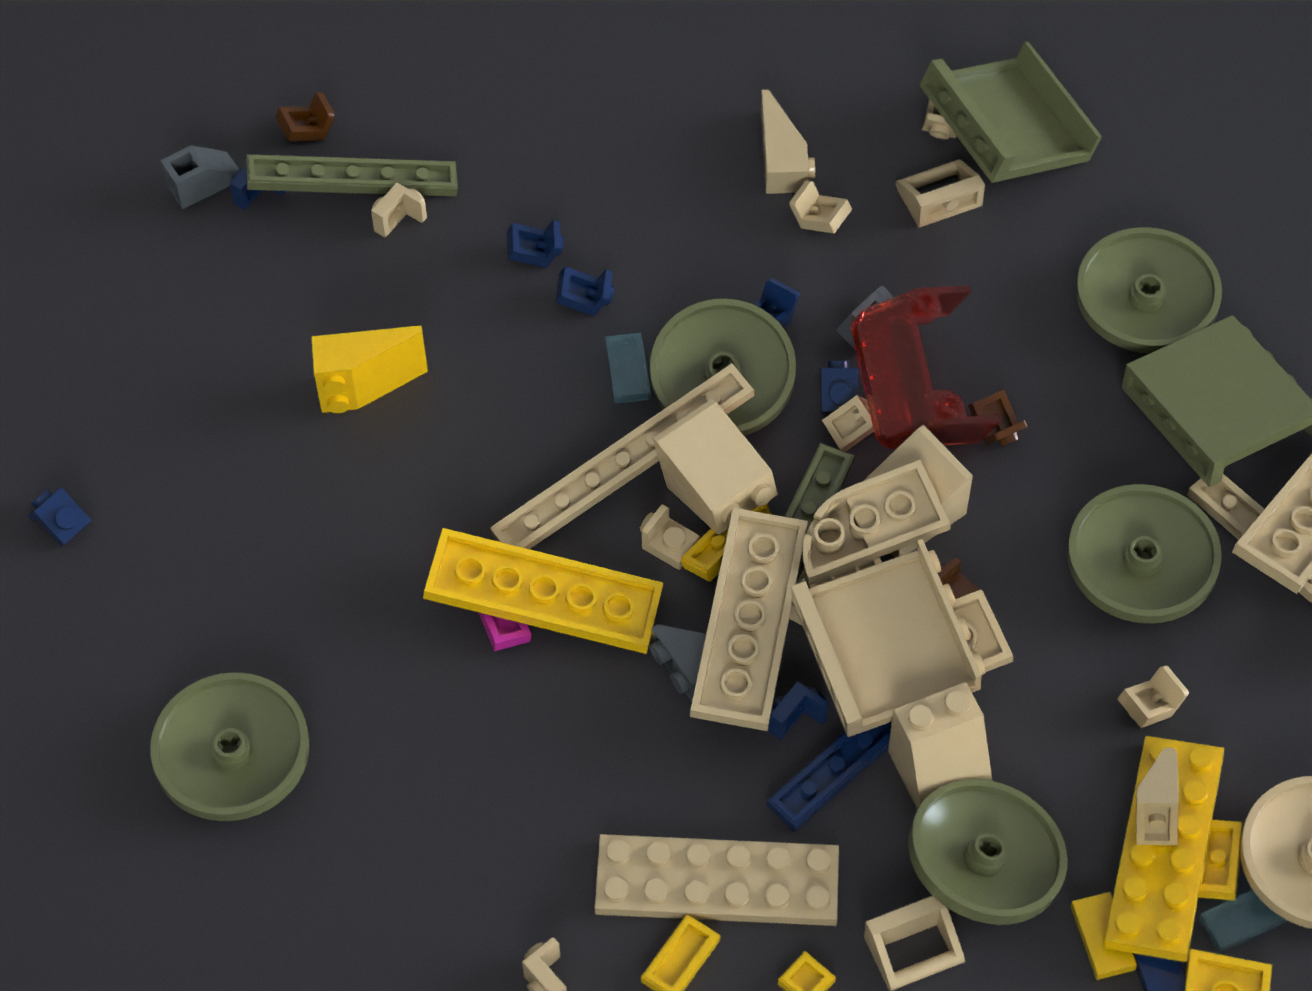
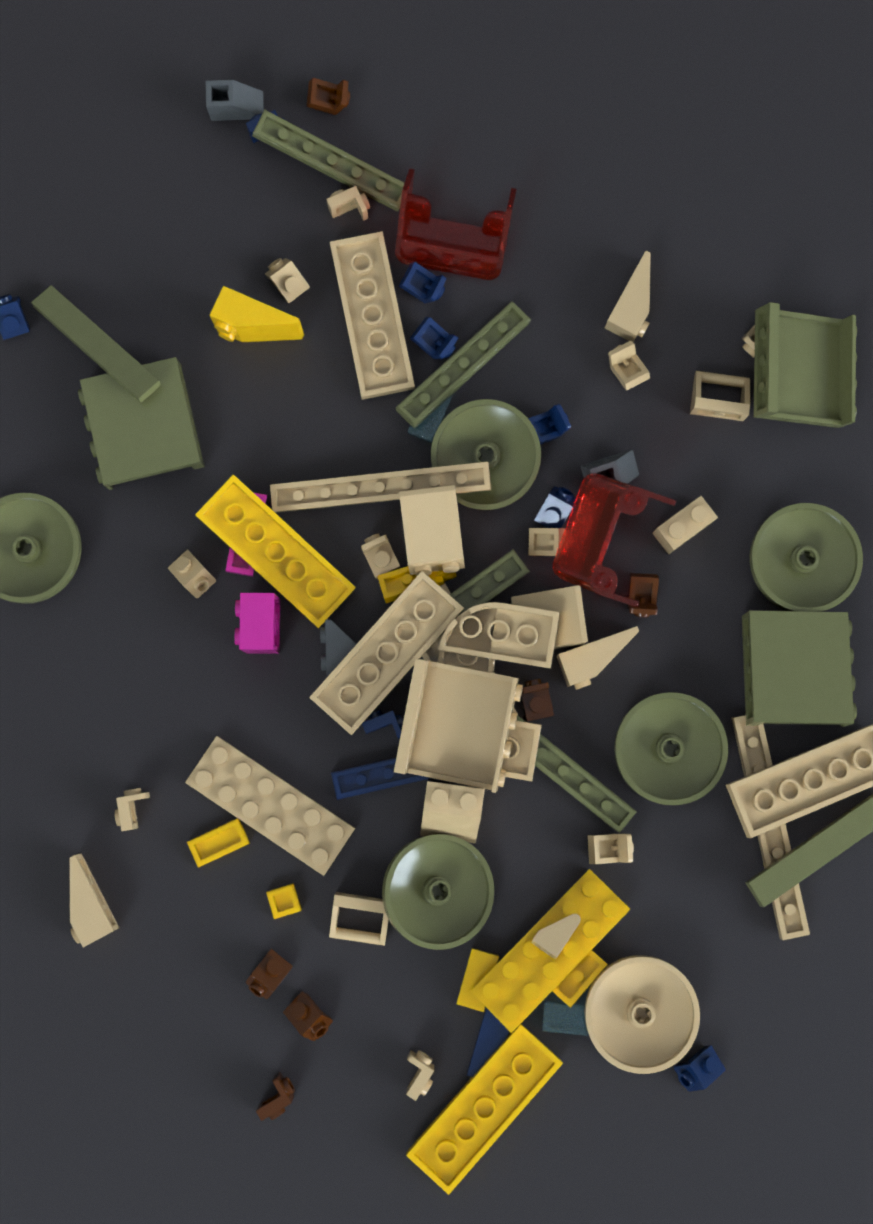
camera: 30 degrees right, 25 degrees up
(187, 483) = (96, 344): none -> olive tile
(289, 542) = (137, 437): none -> olive panel
(371, 312) = (287, 279): none -> tan bracket
(455, 671) = (192, 574): none -> tan bracket
(497, 304) = (372, 315): none -> tan plate
(550, 194) = (450, 244): none -> clear red windscreen
(575, 673) = (258, 623): none -> dark pink brick
(633, 300) = (463, 364): none -> olive tile
(981, 521) = (590, 659): none -> tan slope
(993, 327) = (684, 525): none -> tan brick
(1078, 651) = (582, 785): none -> olive tile

